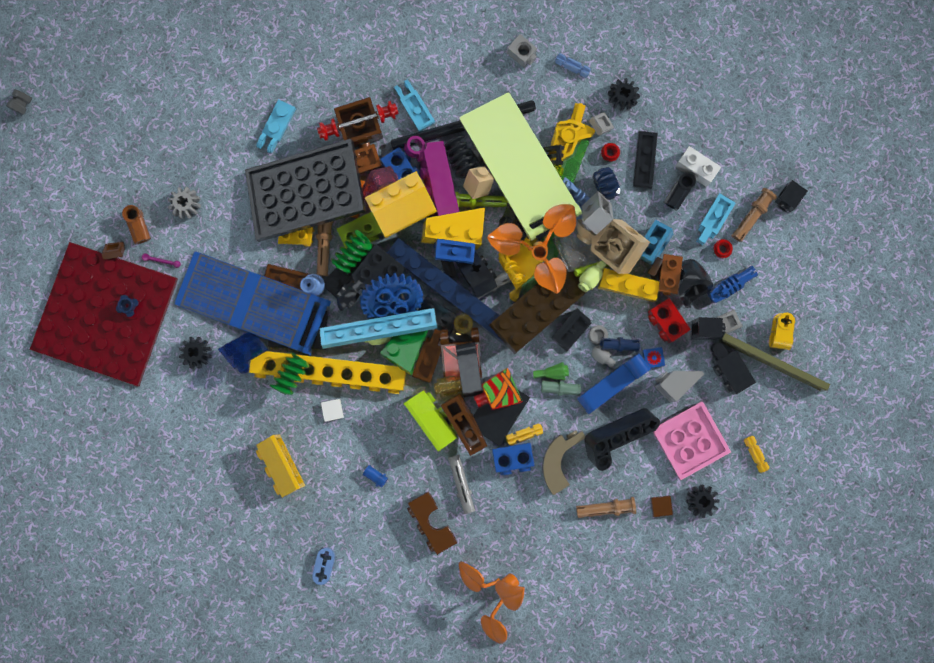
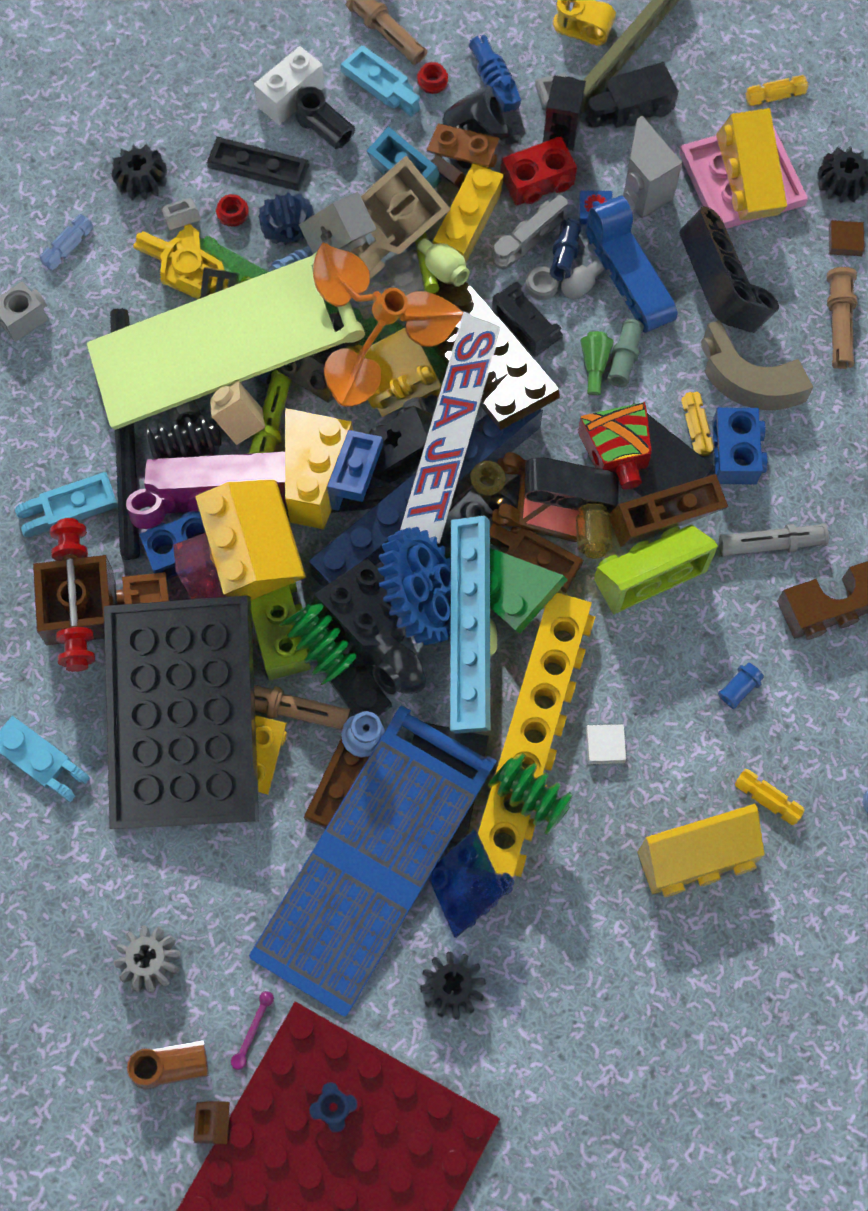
camera: 80 degrees left, 15 degrees down
(318, 498) = (769, 797): none -> yellow axle
(485, 298) = (451, 425): none -> sticker
(626, 322) = (530, 233): none -> light grey hinge
(688, 443) = (752, 164): none -> yellow wedge

